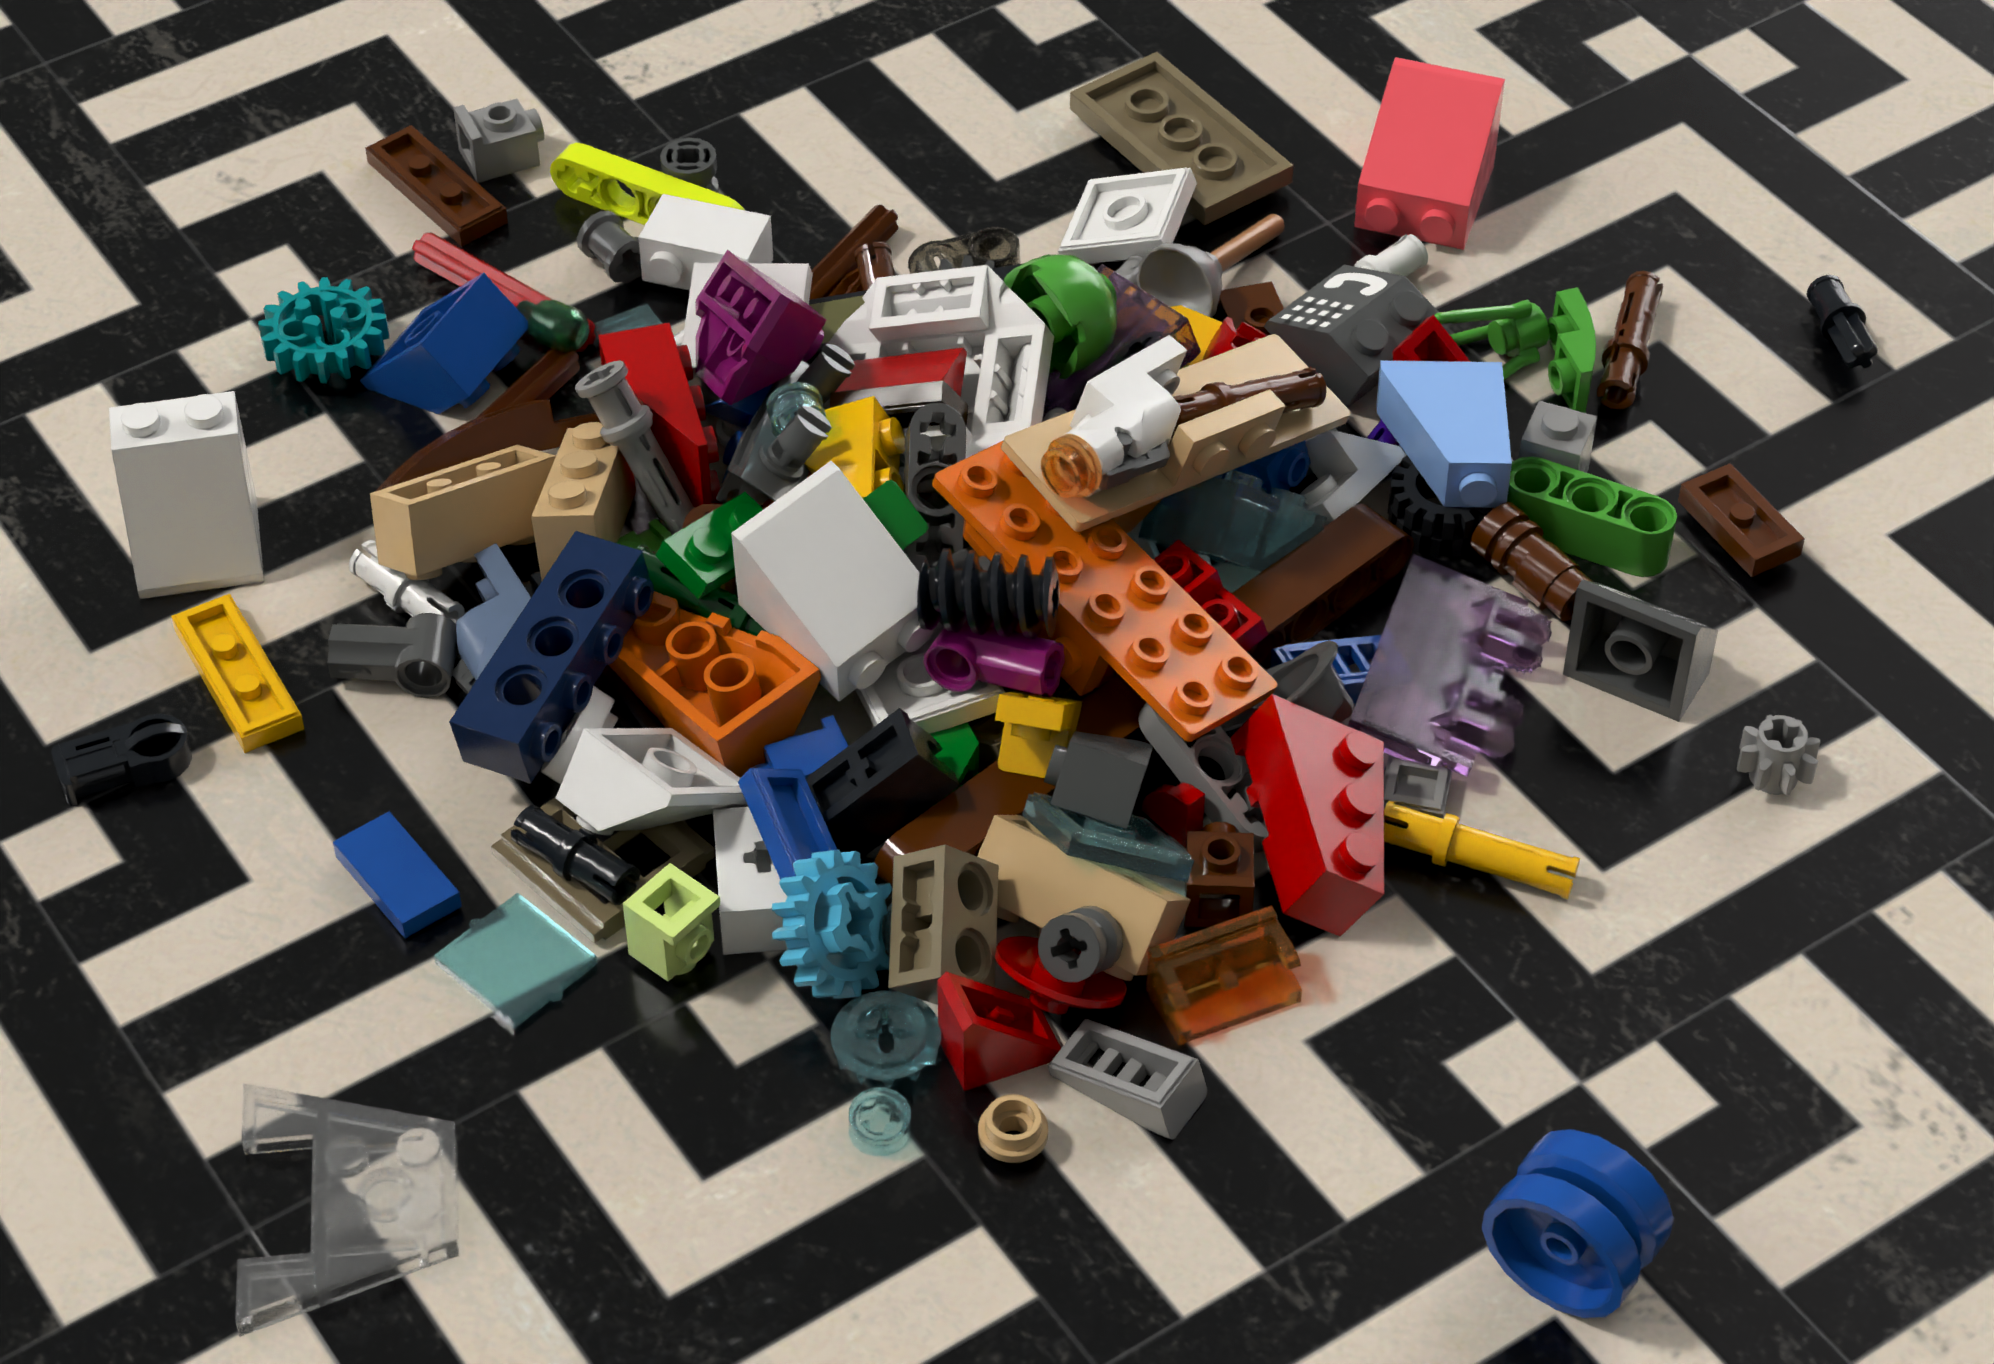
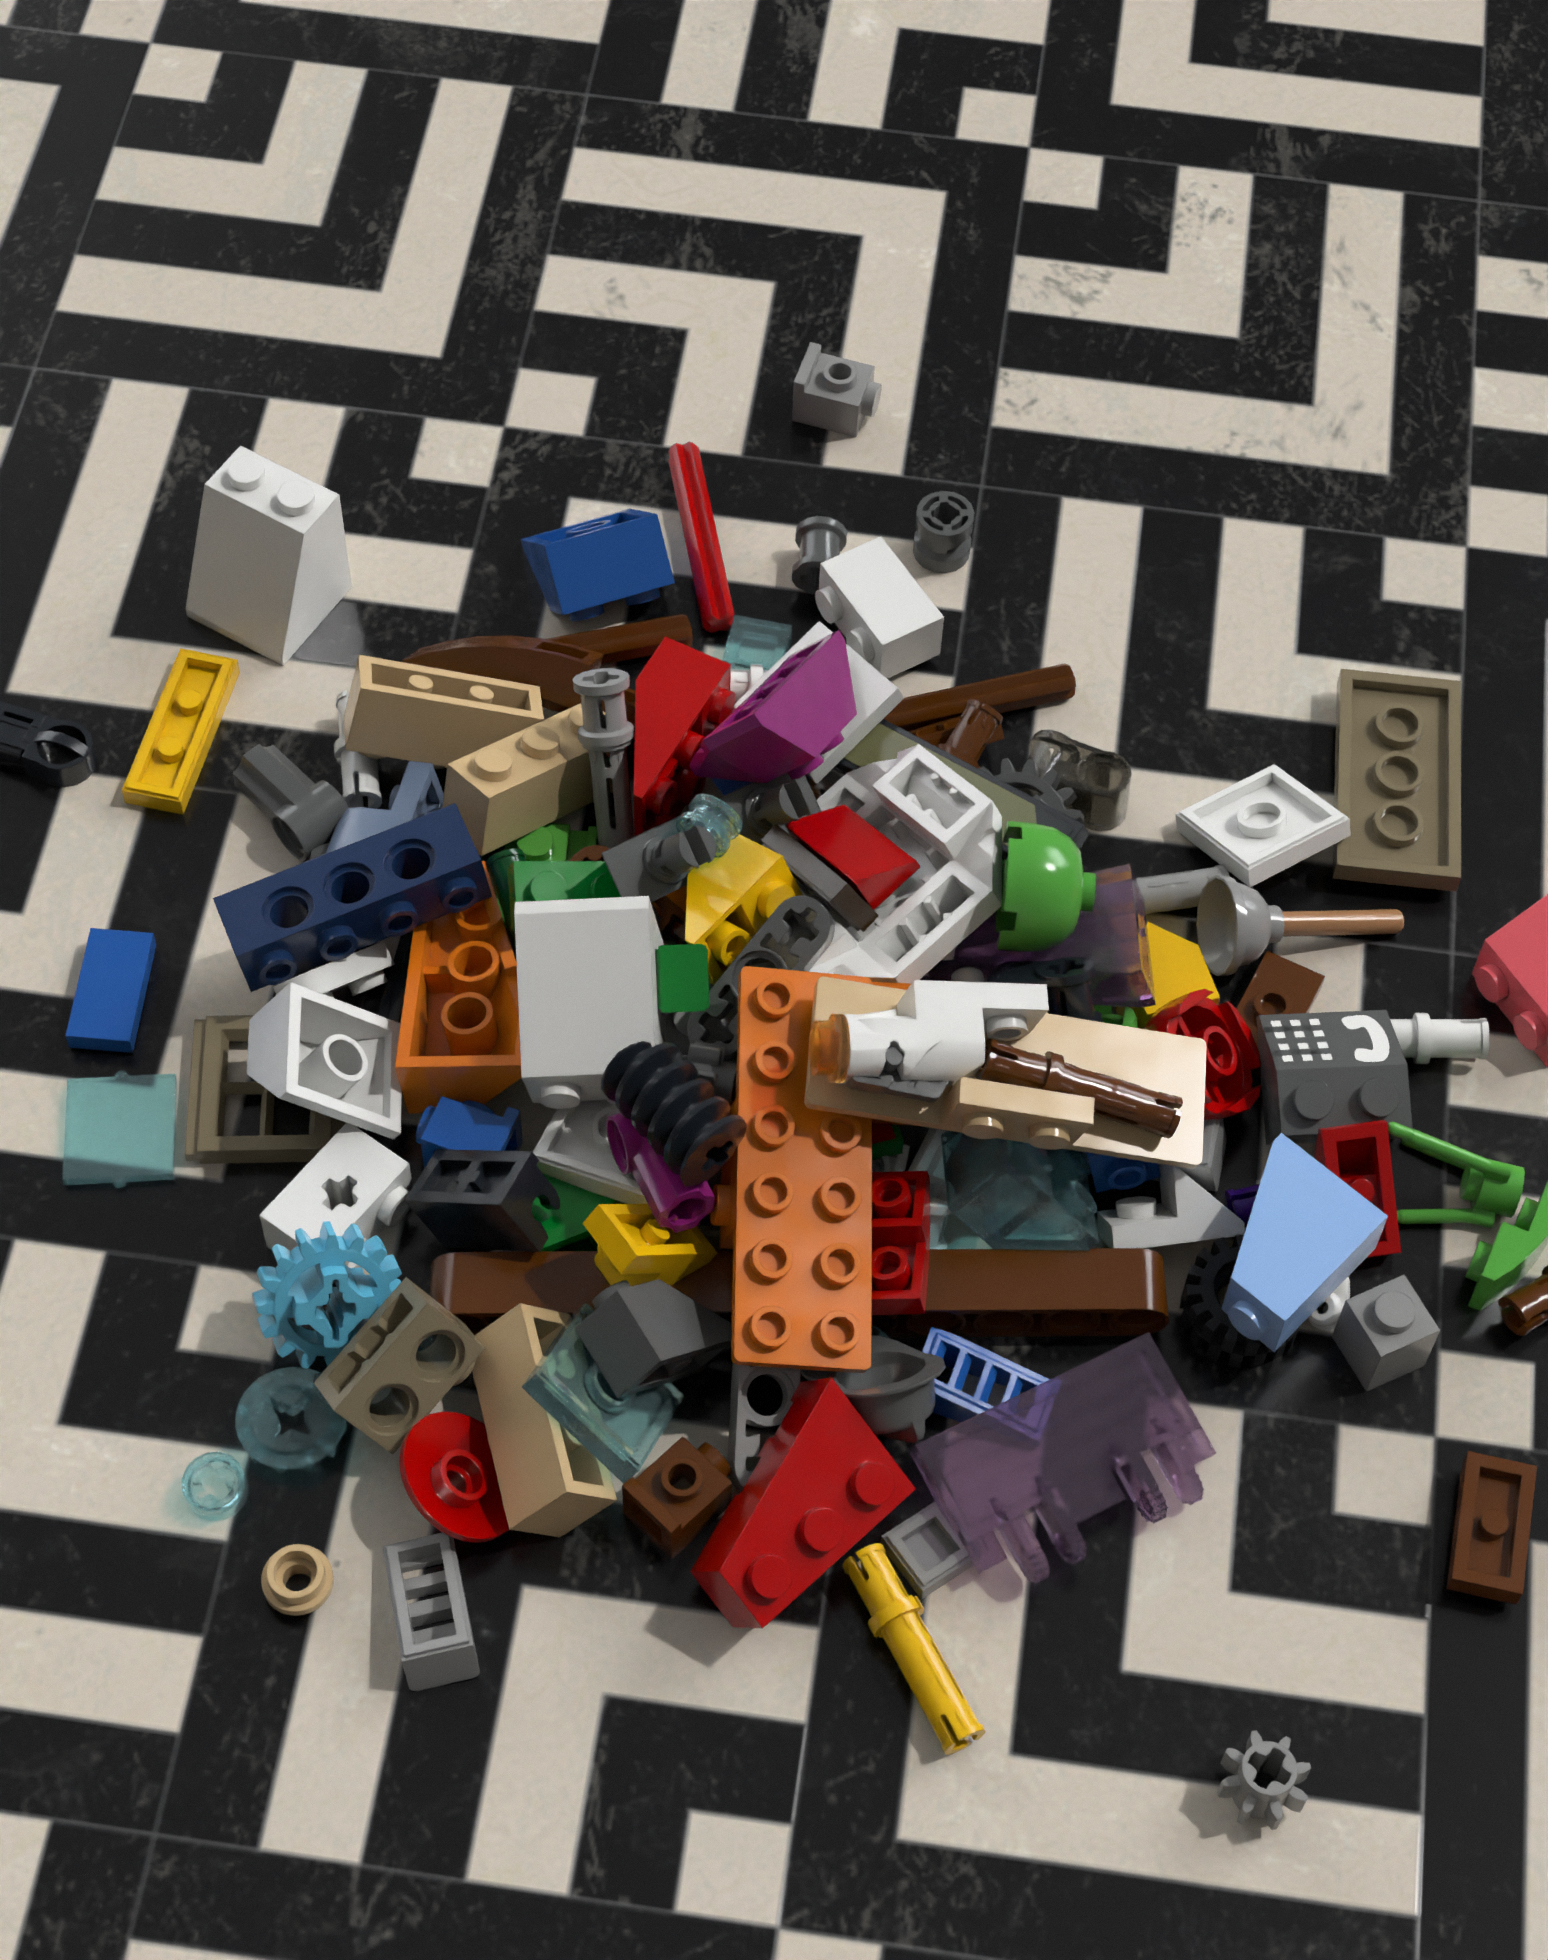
camera: 40 degrees right, 10 degrees up
(295, 335) = (553, 483): teal gear -> none
(436, 185) = (752, 402): reddish brown tile -> none
(556, 324) = (690, 596): clear green cylinder -> none
(575, 854) = (224, 1078): black pin -> none
(593, 176) = (890, 515): neon yellow beam -> none
(682, 935) = (226, 1207): yellowish green brick -> none
(785, 816) = (379, 1180): blue tile -> none
(990, 1031) = (358, 1481): red slope -> none
(1094, 934) = (480, 1468): dark grey wheel -> none
(1176, 809) = (713, 1410): red tile -> none
(1223, 975) = (586, 1586): clear orange hinge -> none
(1538, 566) = (1254, 1427): reddish brown axle -> none
(1595, 516) = (1348, 1444): bright green beam -> none
(1637, 650) = (1251, 1575): dark grey slope -> none

